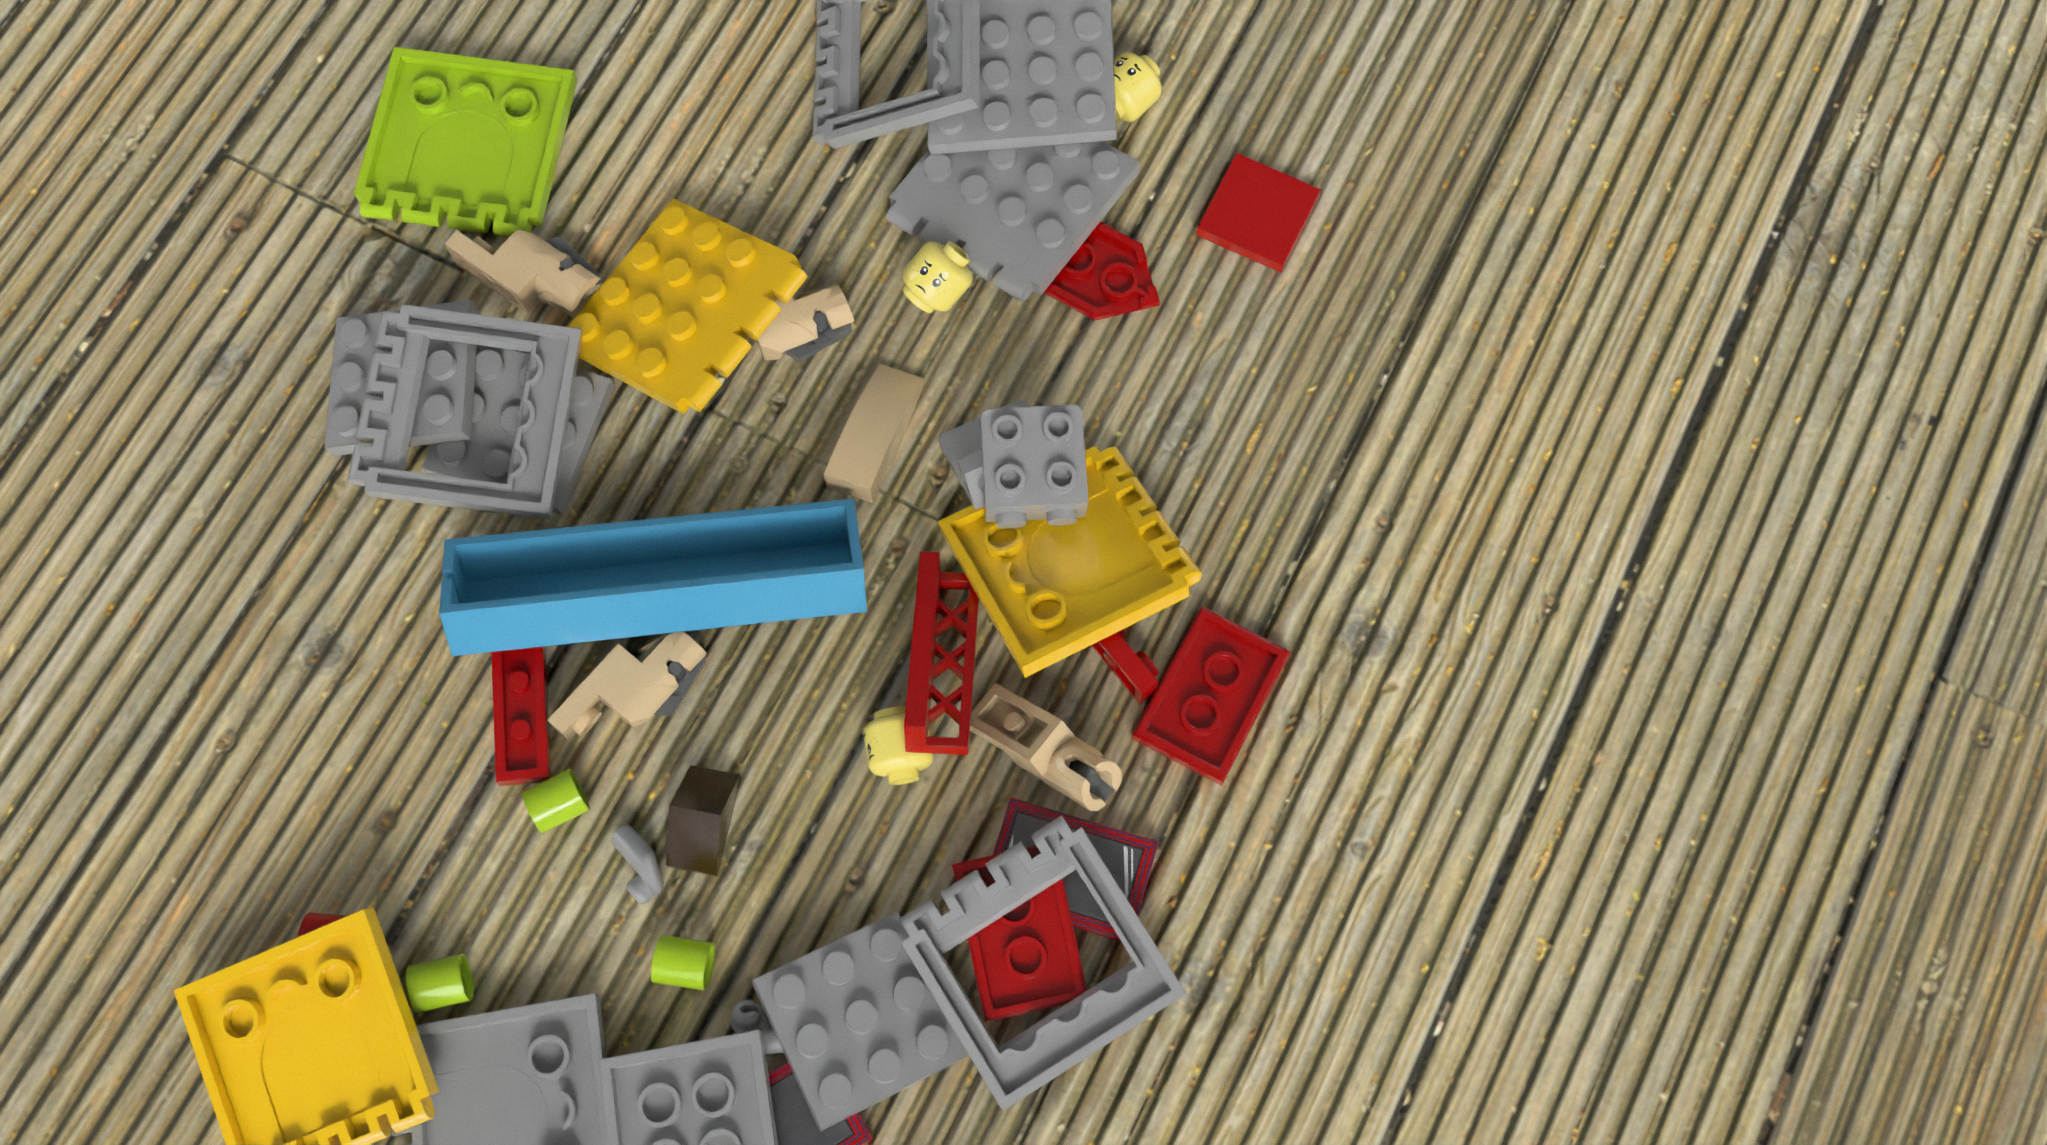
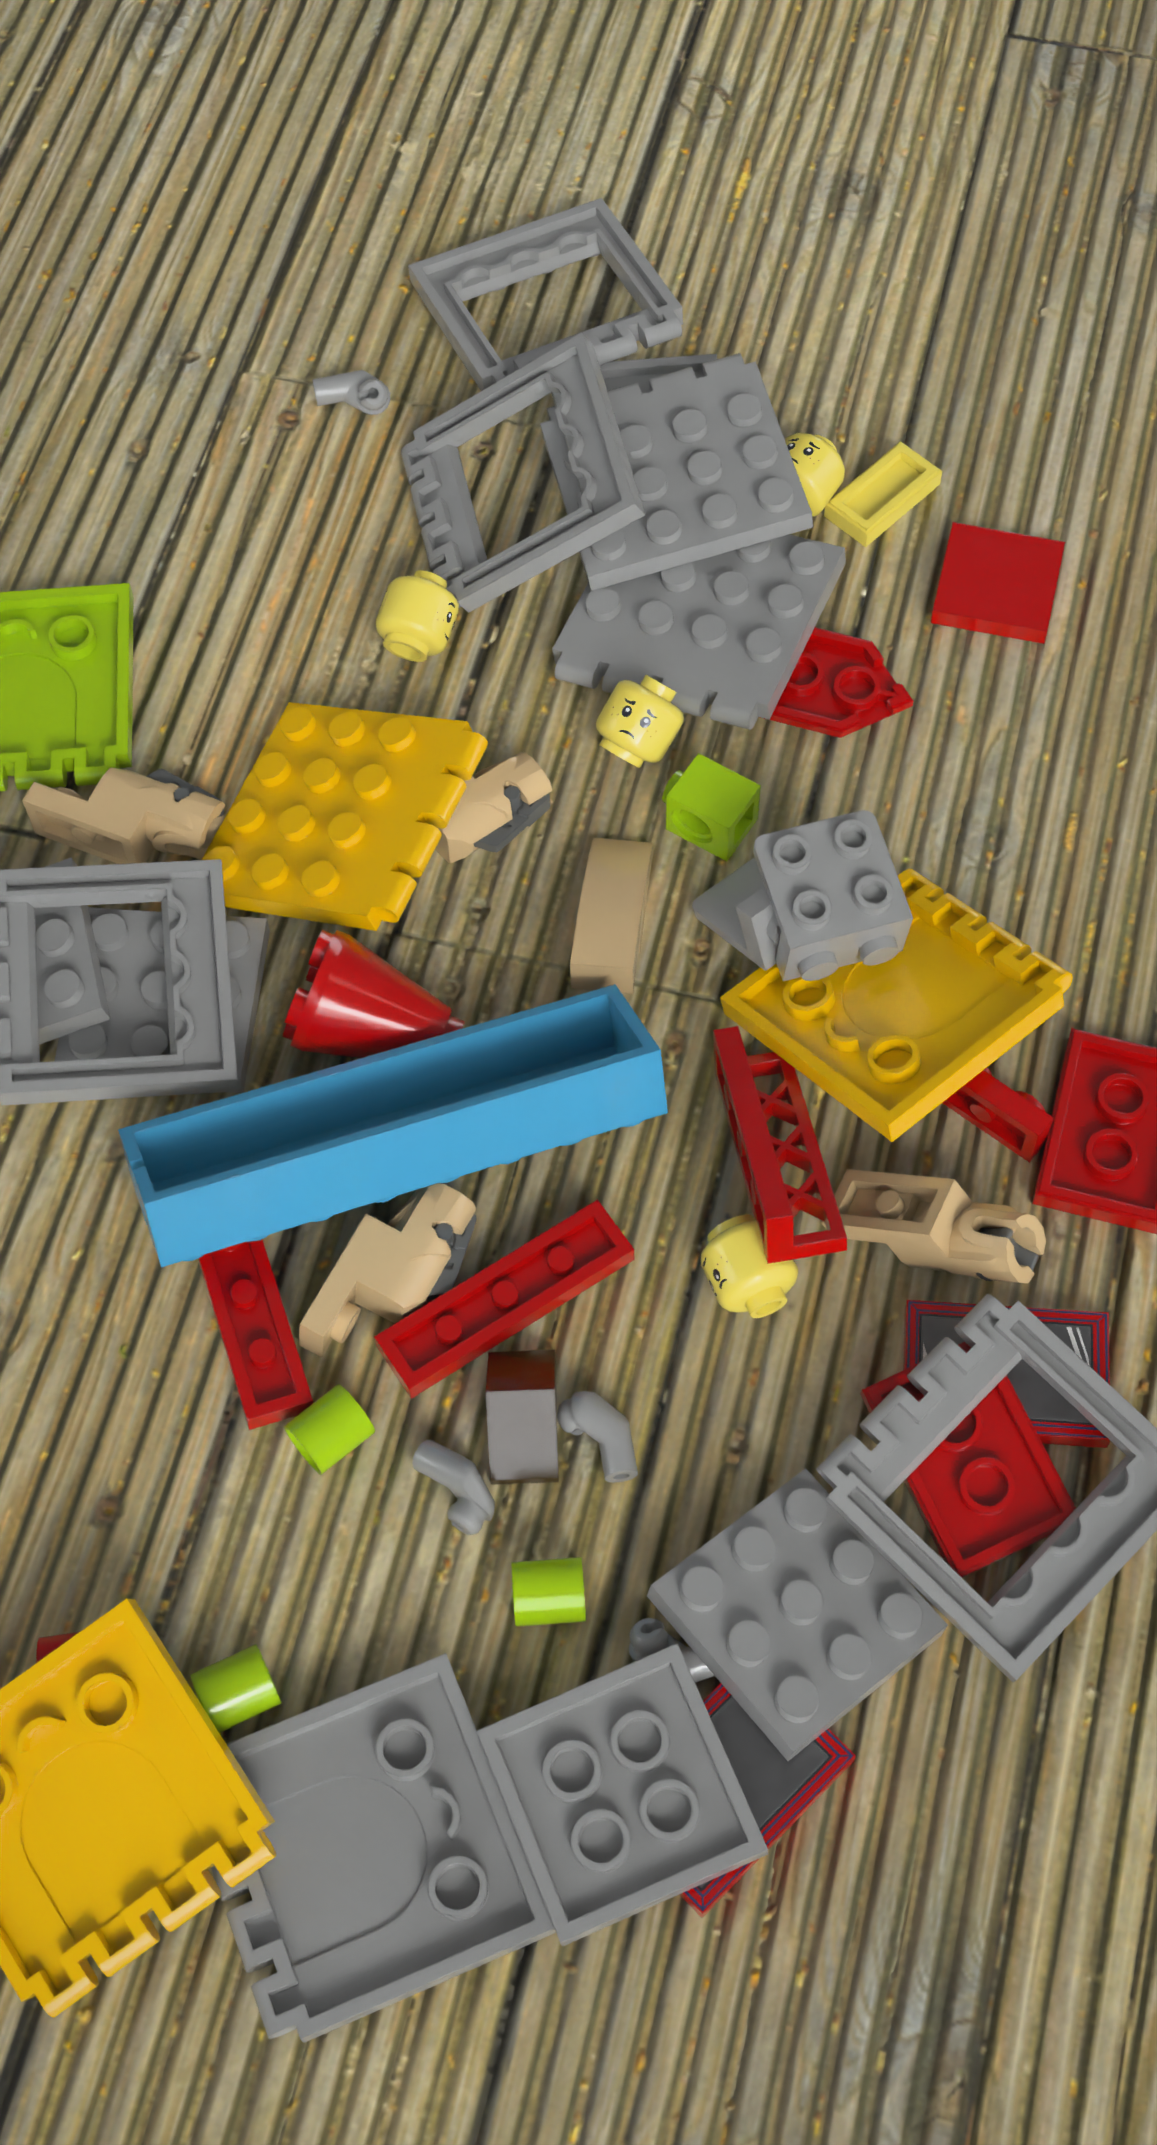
camera: 10 degrees left, 10 degrees down
(662, 471) = (361, 1004): none -> red cone
(710, 727) = (504, 1298): none -> red plate
(760, 843) = (606, 1425): none -> light grey arm
(789, 146) = (417, 616): none -> light yellow head
(974, 359) = (711, 806): none -> lime brick
(1190, 114) = (883, 494): none -> light yellow tile

